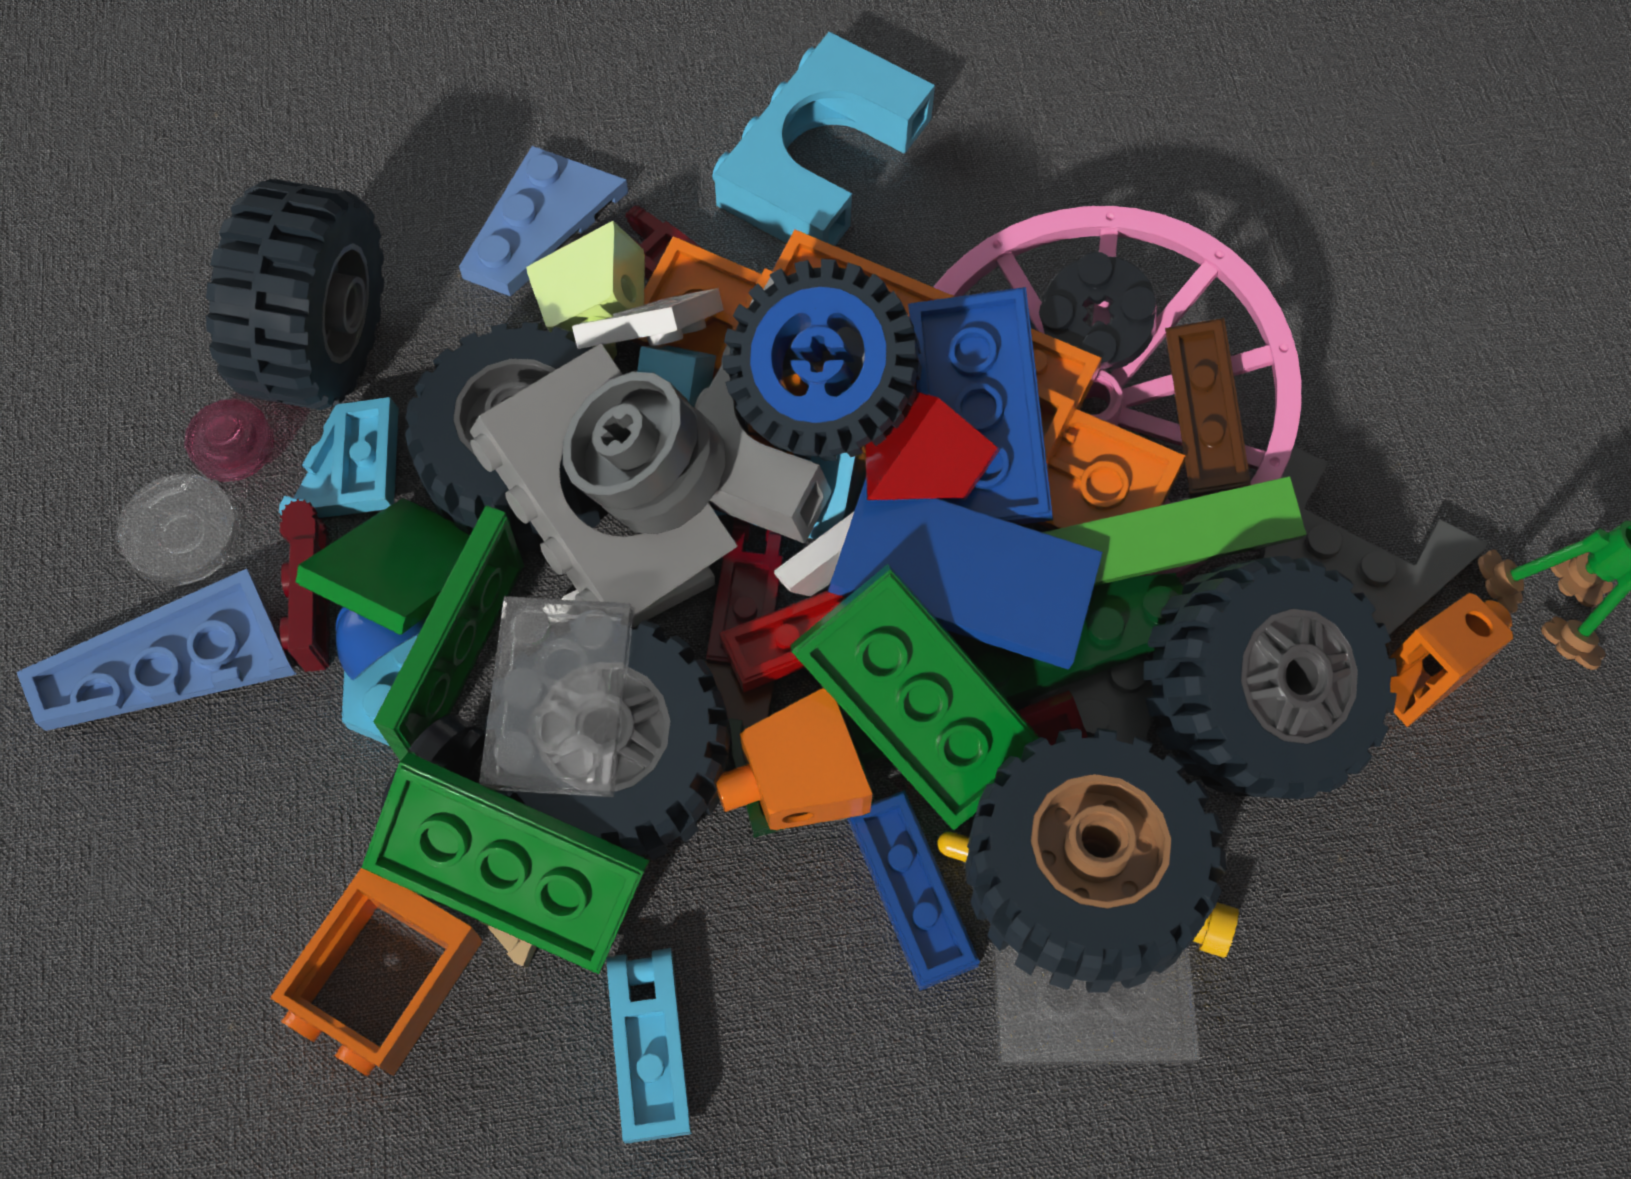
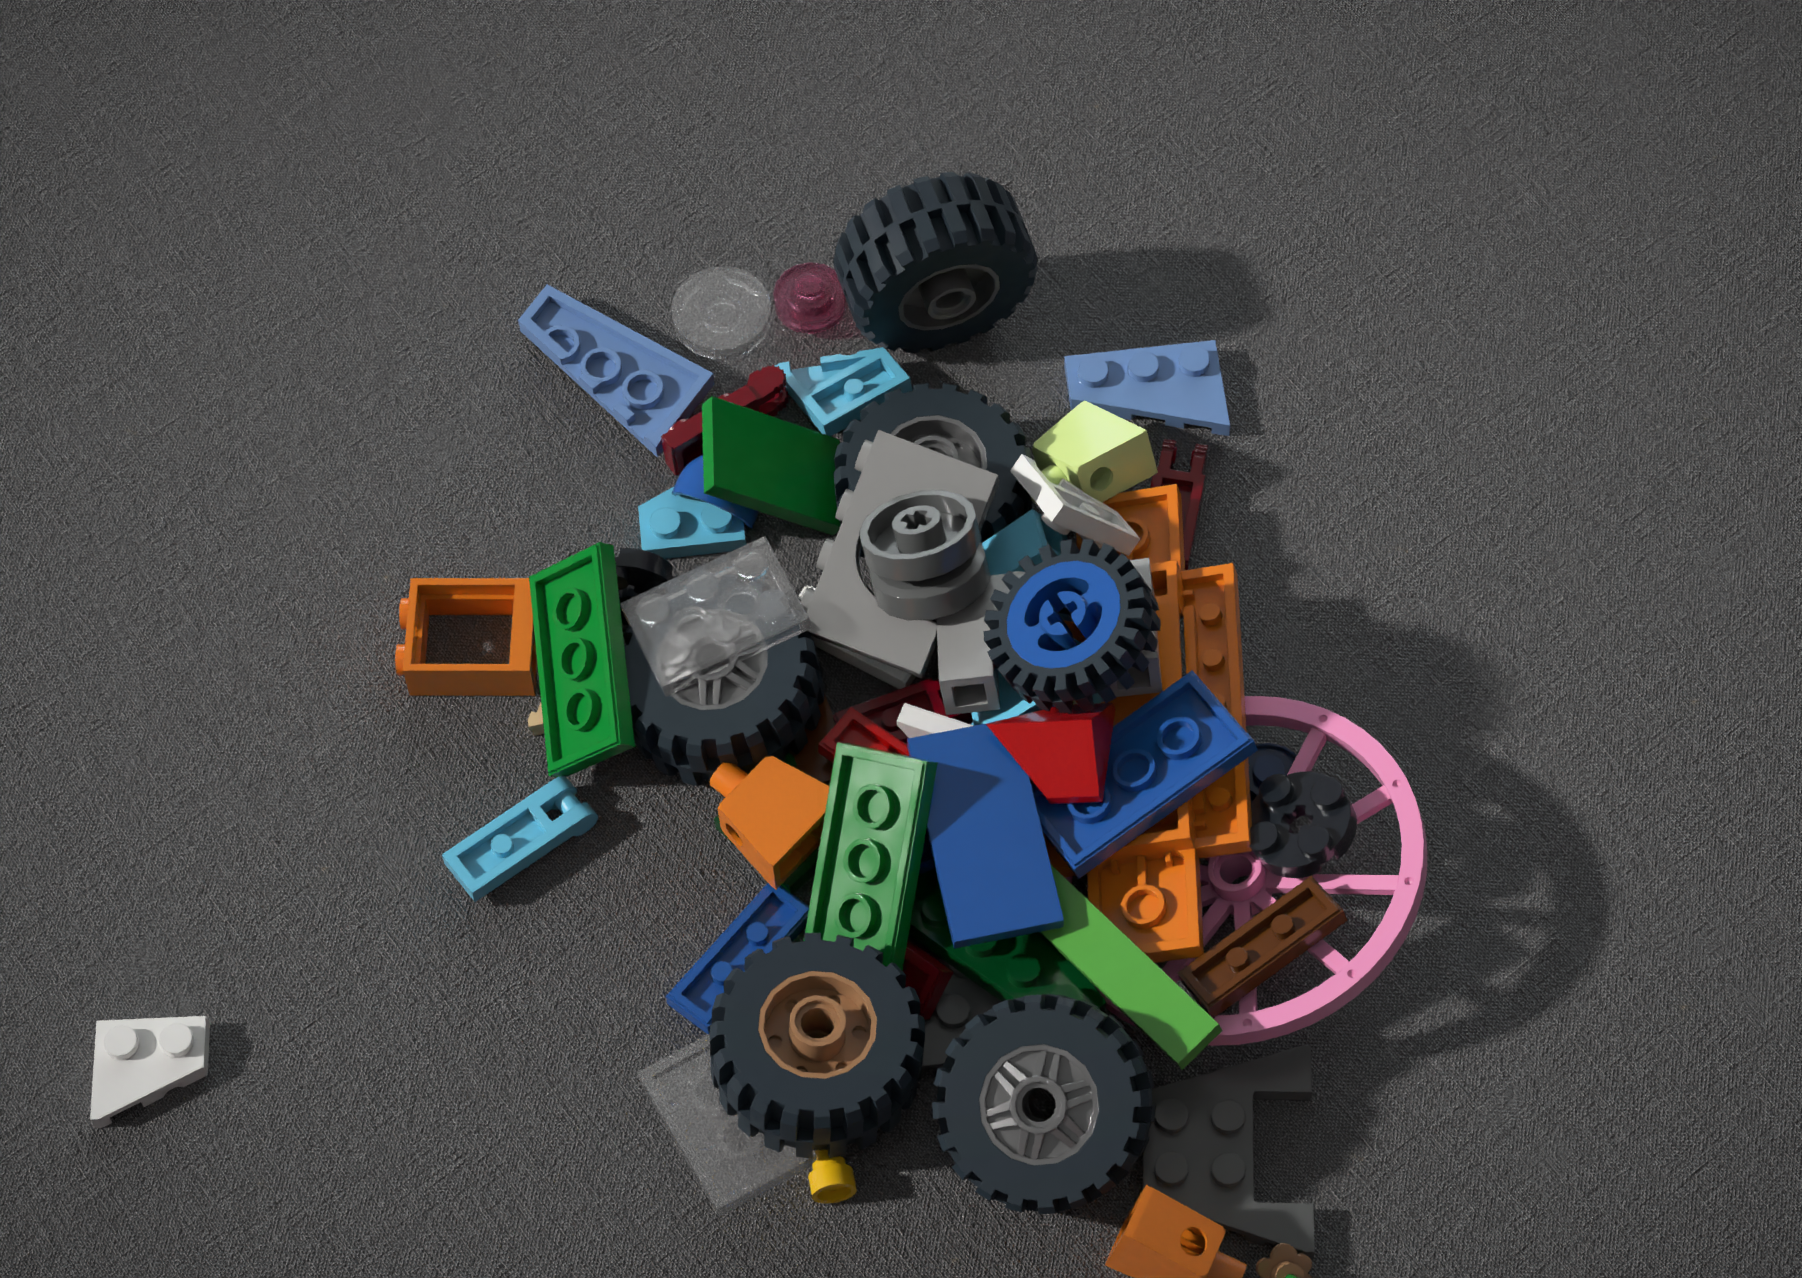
camera: 65 degrees right, 5 degrees down
(452, 633) = (698, 533): green tile -> none
(831, 87) = (1428, 521): medium azure arch -> none

